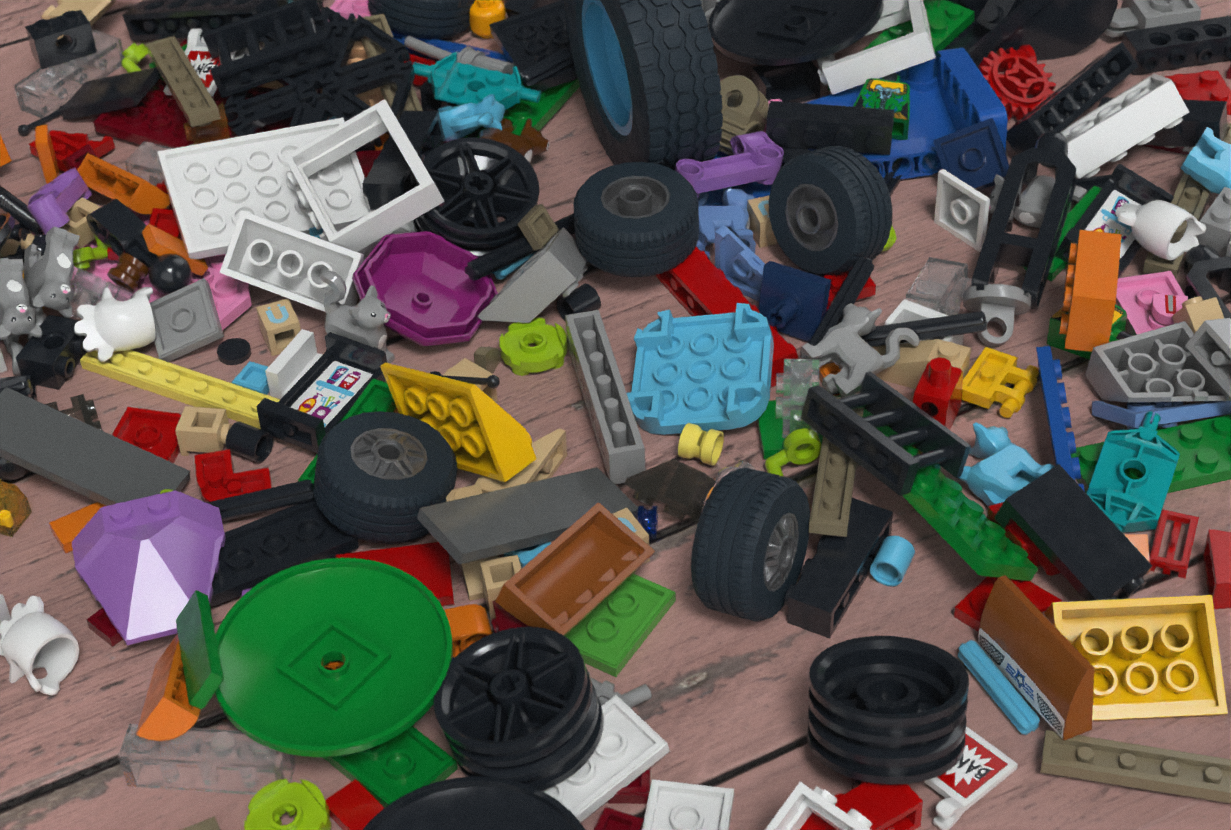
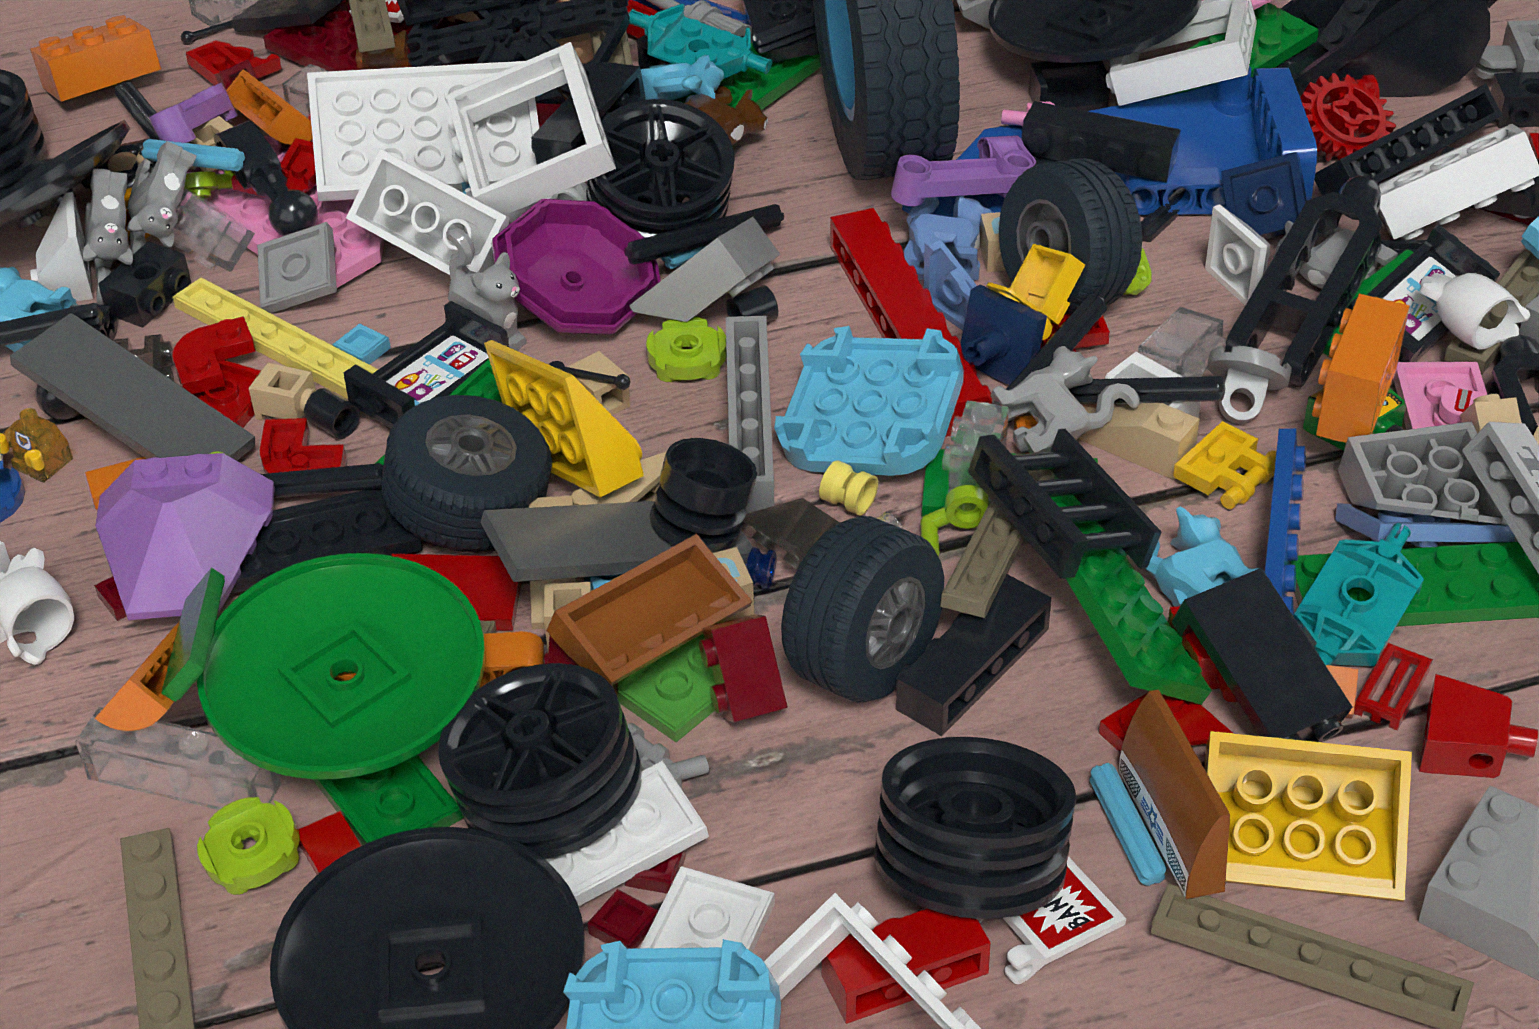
camera: 10 degrees right, 0 degrees up
(46, 153) = (197, 62): orange tile -> none
(87, 234) = (206, 156): none -> medium azure axle
(116, 324) = (217, 261): white piece -> none
(122, 402) = (200, 350): none -> red plate
(128, 272) = (247, 205): reddish brown wheel -> none
(164, 243) = (289, 176): orange tile -> none
(234, 351) = (347, 311): black piece -> none
(278, 325) = (403, 289): tan brick -> none
(292, 364) = (404, 330): white panel -> none
(487, 358) = (628, 356): dark tan tile -> none
(538, 227) = (722, 211): dark tan tile -> none
(592, 467) = (703, 493): none -> black wheel
(636, 219) = (837, 217): black wheel -> none
(662, 607) = (742, 668): none -> dark red brick
(743, 110) = (992, 114): dark tan piece -> none
(821, 251) = (1044, 283): none -> yellow piece
(891, 95) = (1183, 112): torso -> none
(892, 560) = (1039, 655): medium azure beam -> none
(943, 387) = (1148, 468): red torso -> none

